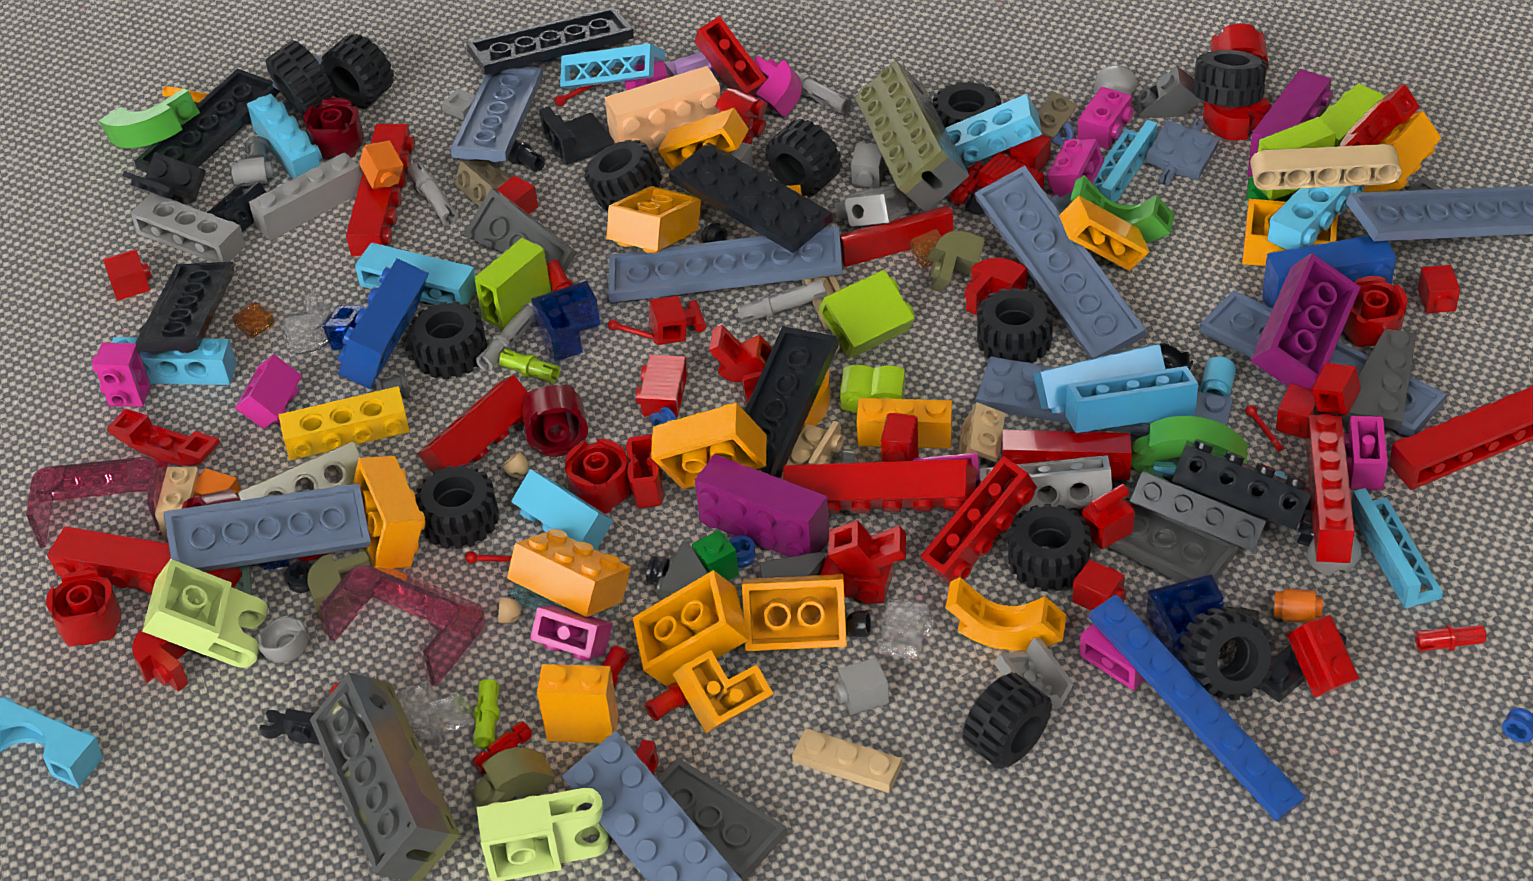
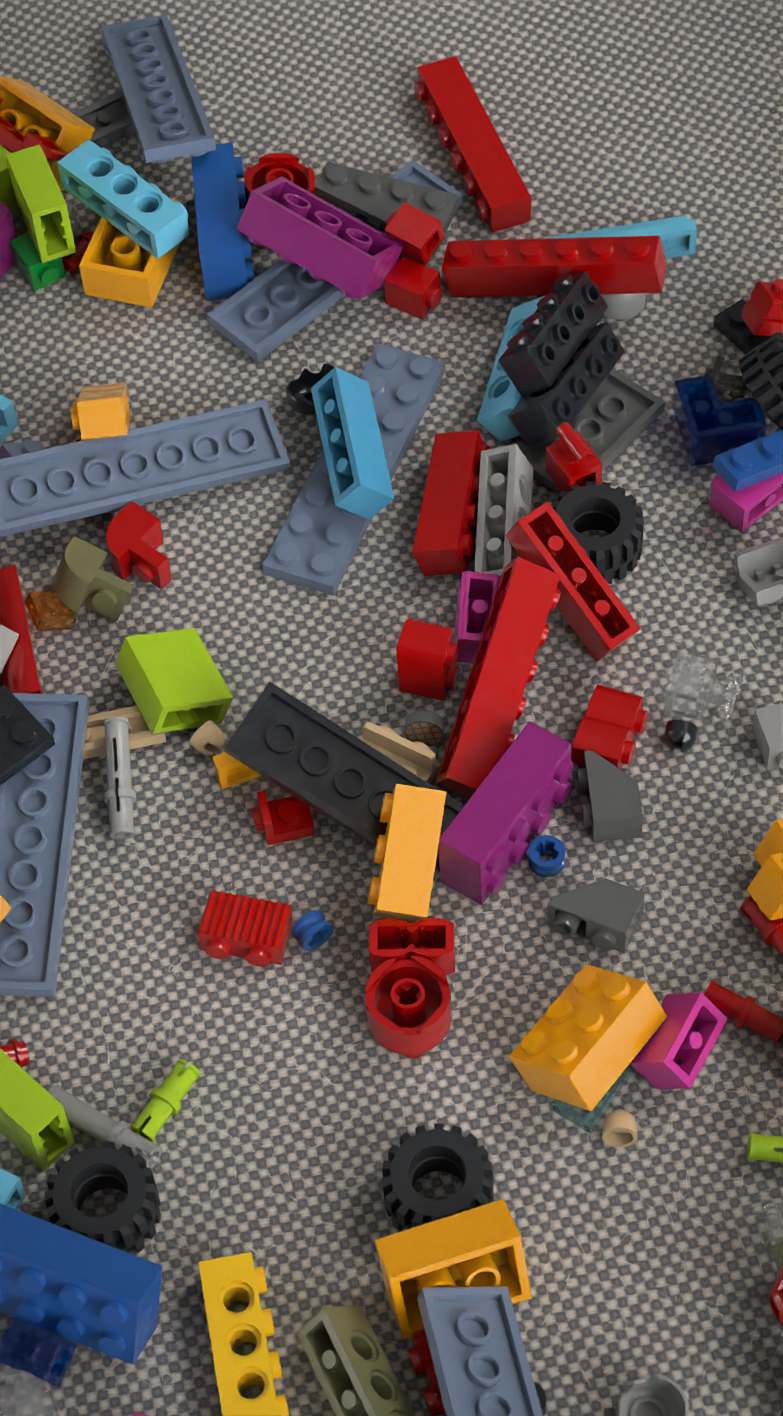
camera: 85 degrees left, 10 degrees up
(327, 574) = (555, 1358): olive brick -> none
(393, 382) = (178, 1285): dark grey bush -> none
(453, 615) = (568, 1275): clear pink windscreen -> none
(472, 557) = (522, 1112): red hinge -> none
(477, 427) = (294, 1159): red brick -> none
(516, 465) = (357, 1124): tan hinge -> none
(554, 419) = (301, 1057): dark red brick -> none
(560, 509) = (466, 1052): medium azure brick -> none
(562, 317) = (99, 1051): clear blue brick -> none
(614, 325) = (136, 941): red hinge -> none
(656, 569) = (575, 945): black bush -> none
(670, 320) = (118, 912): red brick -> none
(688, 625) = (706, 894): light orange brick -> none
(717, 554) = (567, 870): green brick -> none
(736, 357) = (217, 828): red brick -> none
(794, 612) = (683, 785): light orange brick -> none
(865, 554) = (612, 686): red brick -> none
(870, 382) = (305, 676): lime brick -> none
(932, 415) = (367, 659): light orange brick -> none
(982, 432) = (408, 586): tan bracket -> none
(1004, 625) = (703, 581): light orange arch -> none
(1015, 325) = (220, 506): black tyre -> none
(1096, 585) = (659, 495): red brick -> none
(1131, 399) = (402, 416): dark azure brick -> none
(1150, 216) = (49, 415): bright green arch -> none
(1170, 434) = (458, 382): bright green arch -> none
(1218, 376) = (345, 350): medium azure brick -> none
(1251, 411) = (395, 333): red hinge -> none
(1297, 605) = (696, 331): orange brick -> none
(1325, 167) = (92, 166): tan beam -> none
(1366, 452) = (493, 223): dark pink brick -> none
(1438, 289) = (249, 136): red brick -> none
(1449, 637) = (748, 220): red axle -> none

